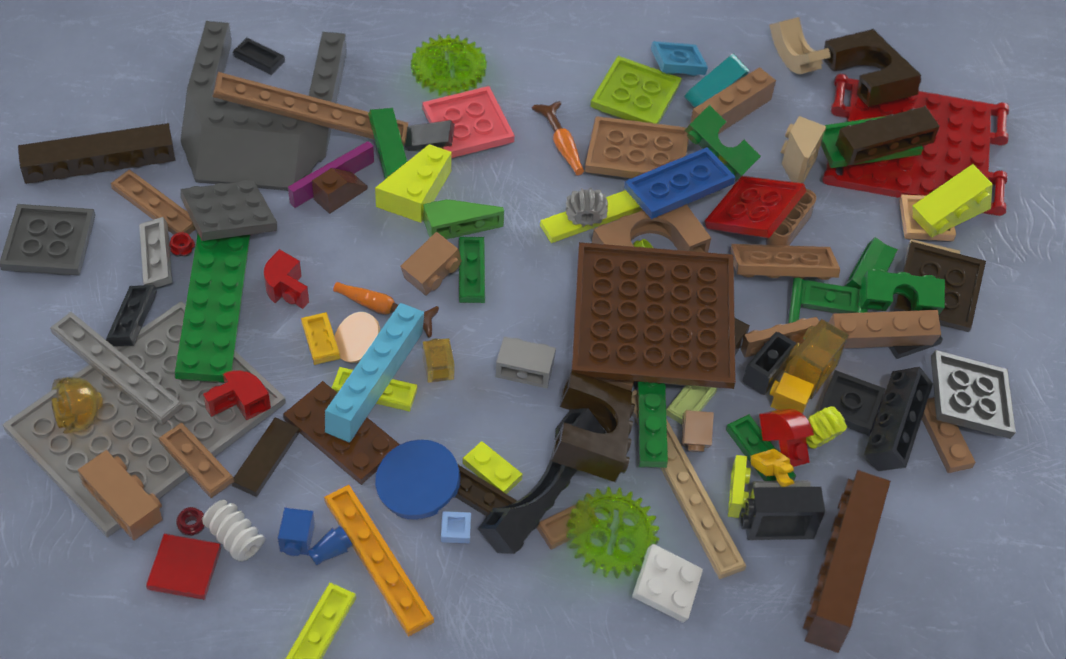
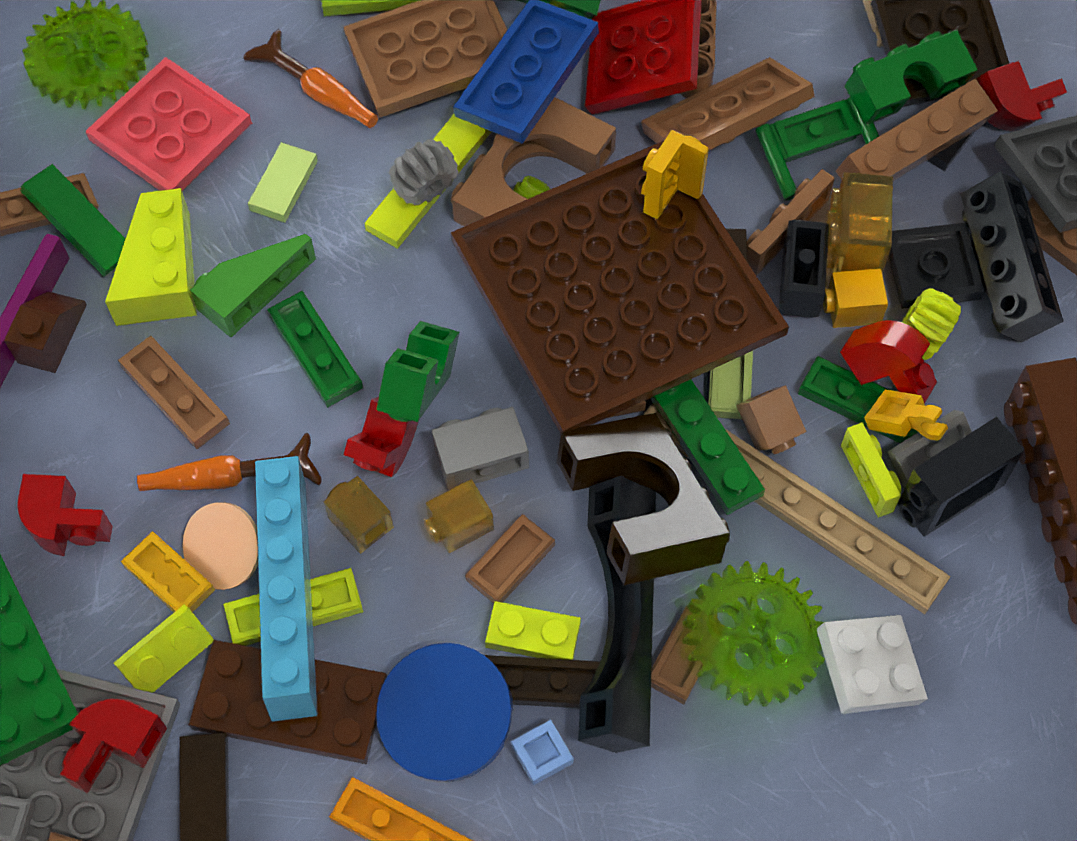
camera: 25 degrees left, 10 degrees up
(294, 372) = (164, 651): none -> neon yellow plate
(383, 252) = (174, 392): none -> medium nougat plate
(431, 263) = (258, 373): medium nougat brick -> none
(435, 134) = (129, 177): black tile -> none
(478, 329) = (381, 443): none -> red brick
(490, 389) = (458, 516): none -> clear yellow brick
(505, 426) = (510, 560): none -> medium nougat tile
(510, 179) = (283, 182): none -> yellowish green tile
(510, 304) = (418, 373): none -> green arch
(717, 266) = (673, 167): none -> yellow bracket
(875, 256) = (835, 53): green piece -> none
(958, 339) = (1013, 98): none -> red brick

